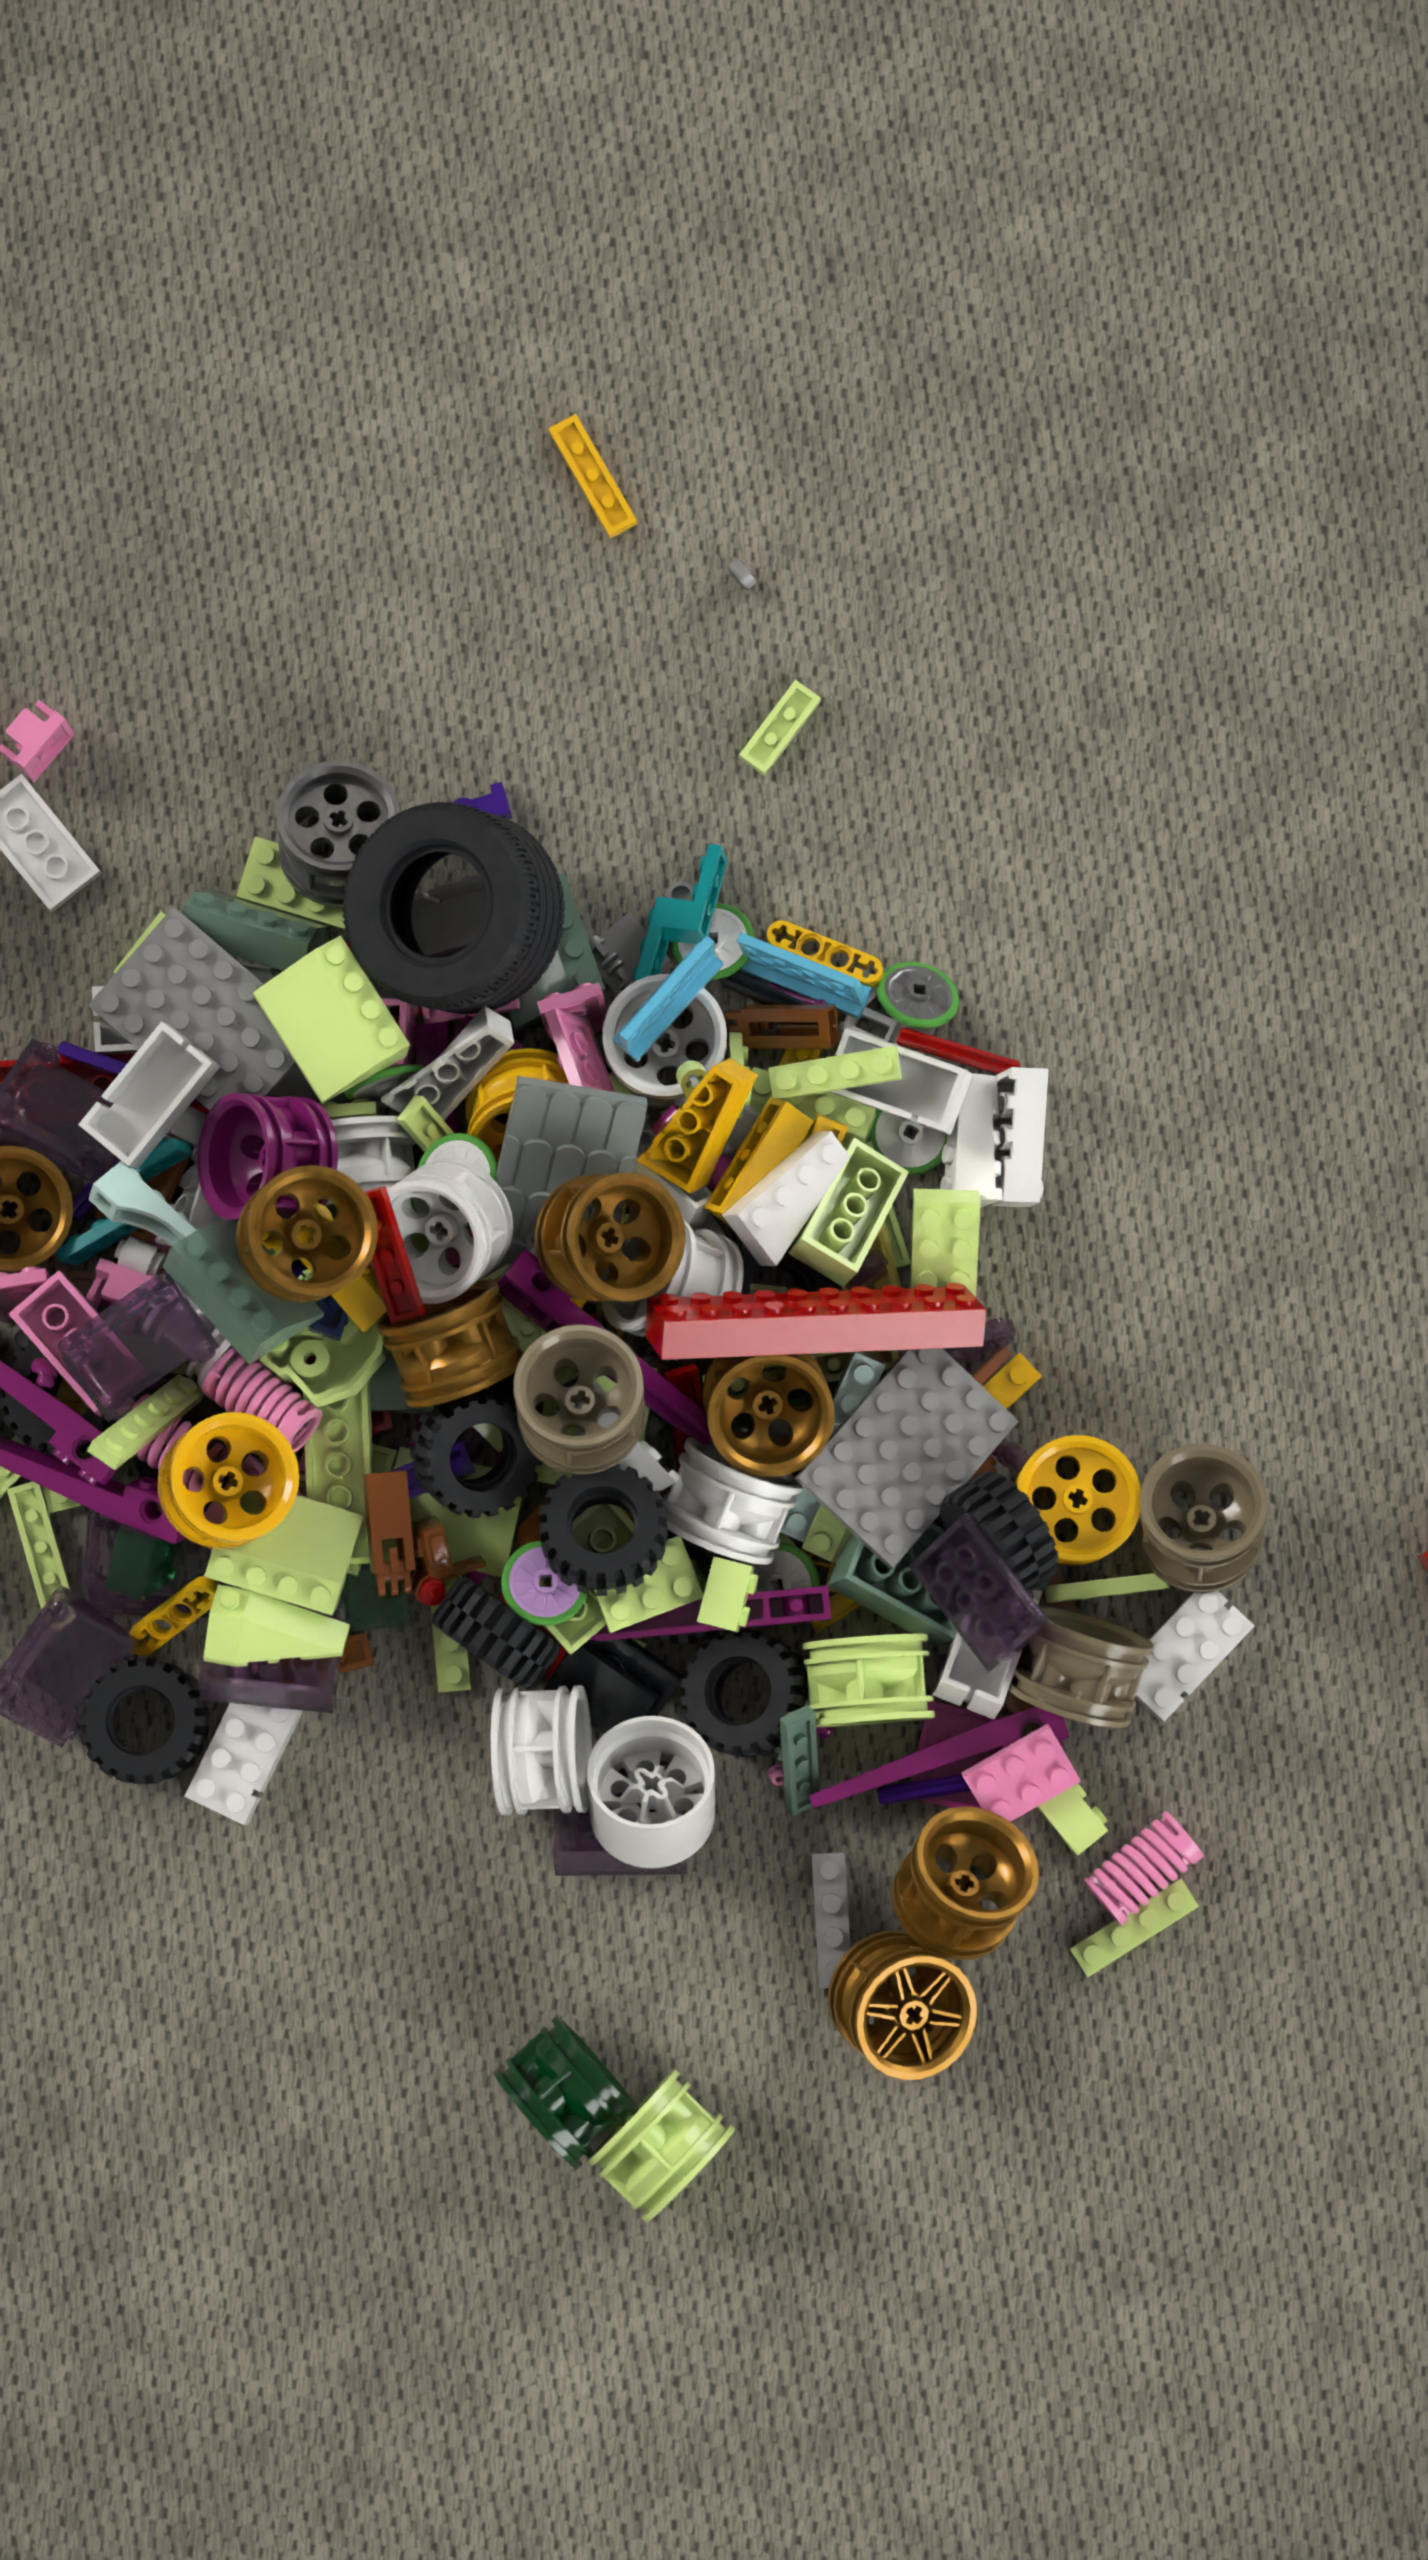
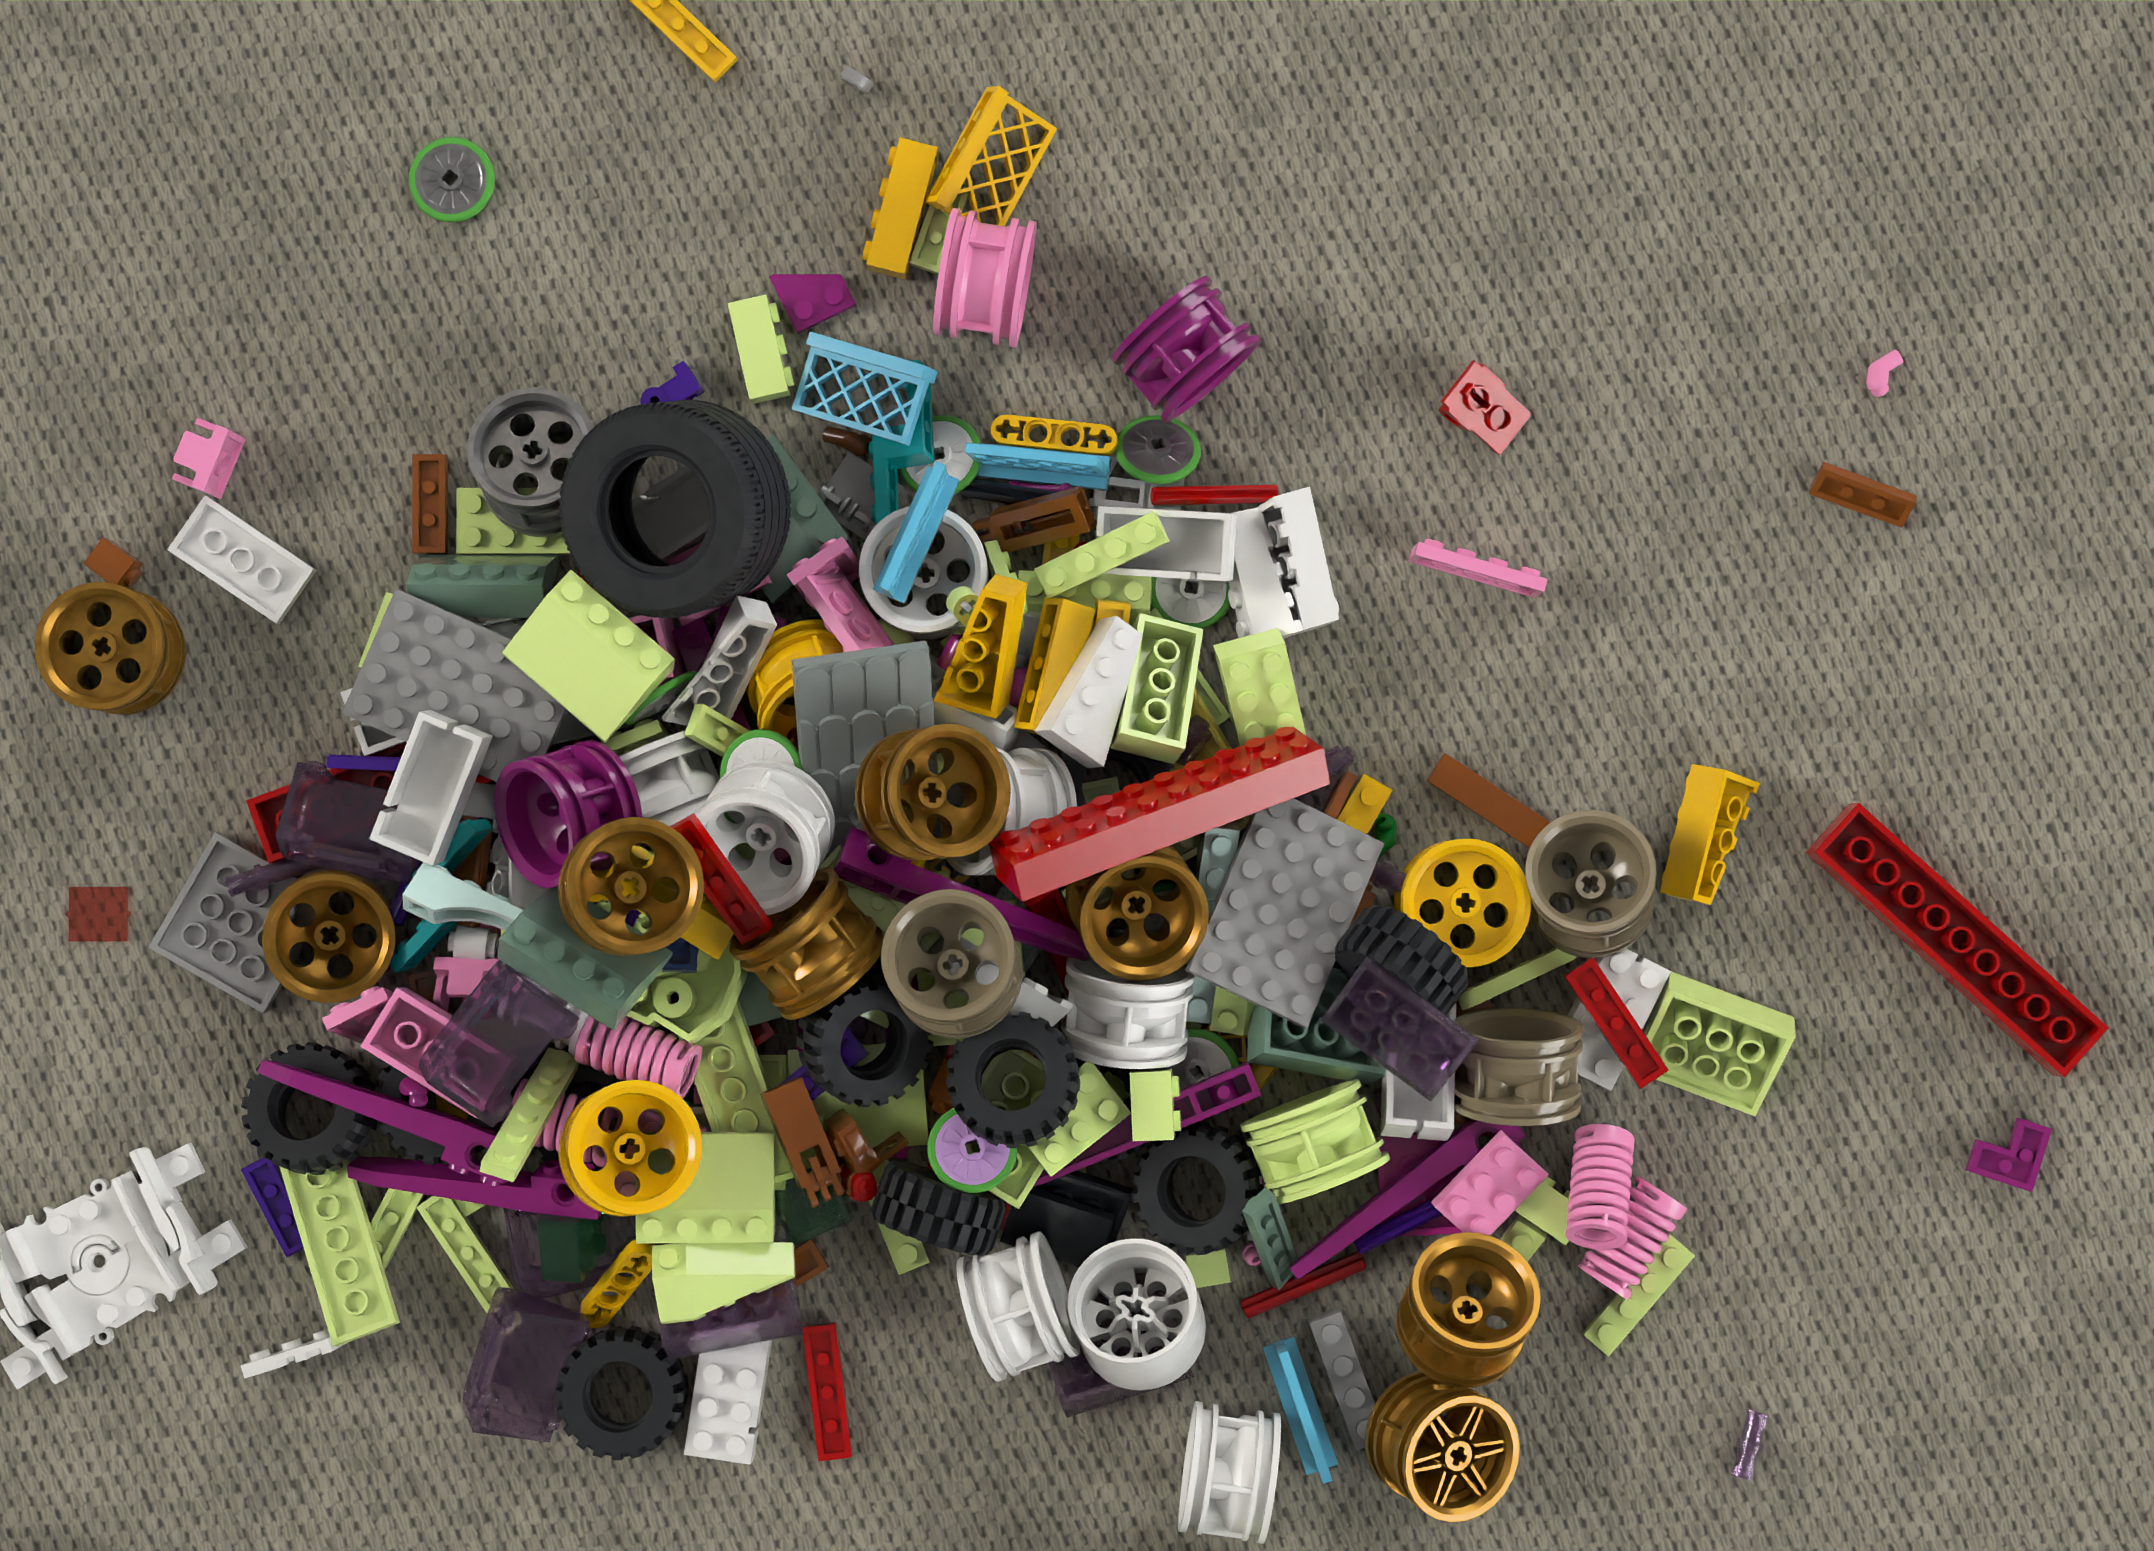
camera: 20 degrees left, 5 degrees up
(226, 843) = (429, 504): none -> dark orange plate
(336, 1782) = (827, 1391): none -> red plate
(349, 572) = (467, 194): none -> flat silver wheel
(576, 793) = (761, 348): none -> yellowish green brick
(631, 900) = (848, 440): none -> reddish brown arm
(639, 760) = (812, 297): none -> magenta wing
(679, 836) = (869, 360): none -> medium azure fence
(692, 1969) = (1229, 1474): none -> white wheel
(732, 1773) = (1208, 1268): none -> yellowish green brick
(747, 703) = (901, 209): none -> yellow brick
(779, 1934) = (1301, 1407): none -> medium azure fence
(803, 787) = (984, 277): none -> bright pink wheel
(818, 1819) = (1308, 1283): none -> red axle
(832, 662) = (972, 143): none -> yellow fence
(970, 908) = (1184, 349): none -> magenta wheel
(1026, 1415) = (1386, 831): none -> green arm
(1042, 1838) = (1524, 1237): none -> yellowish green plate
(1126, 1807) = (1600, 1186): none -> bright pink piece
(1127, 1413) = (1487, 800): none -> dark orange tile
(1173, 1187) = (1490, 572): none -> bright pink plate
(1187, 1656) = (1616, 1023): none -> red plate
(1198, 2103) = (1749, 1444): none -> clear purple pin
(1236, 1047) = (1484, 407): none -> piece
(1276, 1710) = (1718, 1042): none -> yellowish green slope
(1327, 1506) = (1705, 832): none -> yellow wedge

